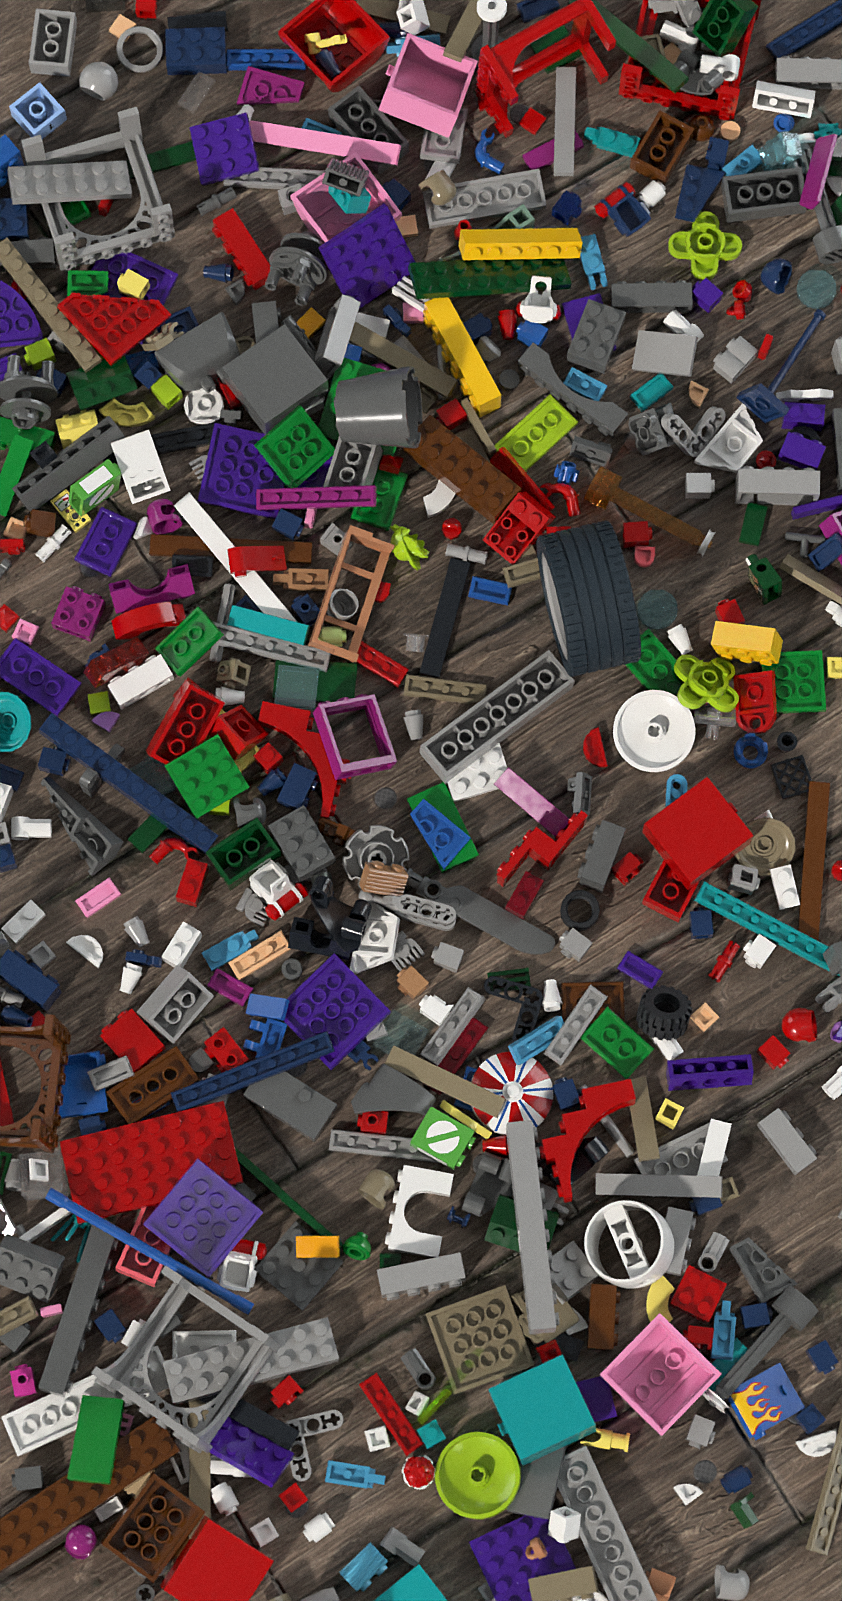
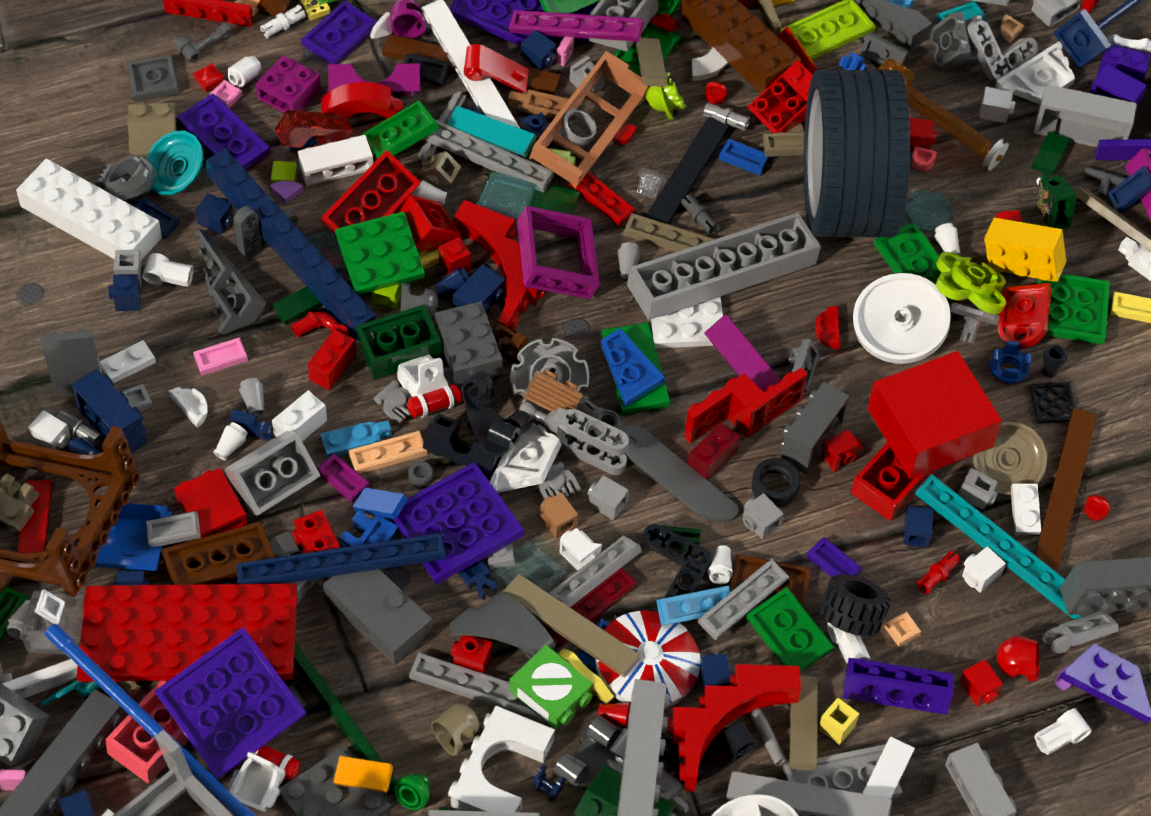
camera: 10 degrees right, 20 degrees down
(35, 607) = (244, 71): none -> white brick
(391, 521) = (651, 62): none -> dark tan tile
(465, 662) = (700, 214): none -> dark grey pin

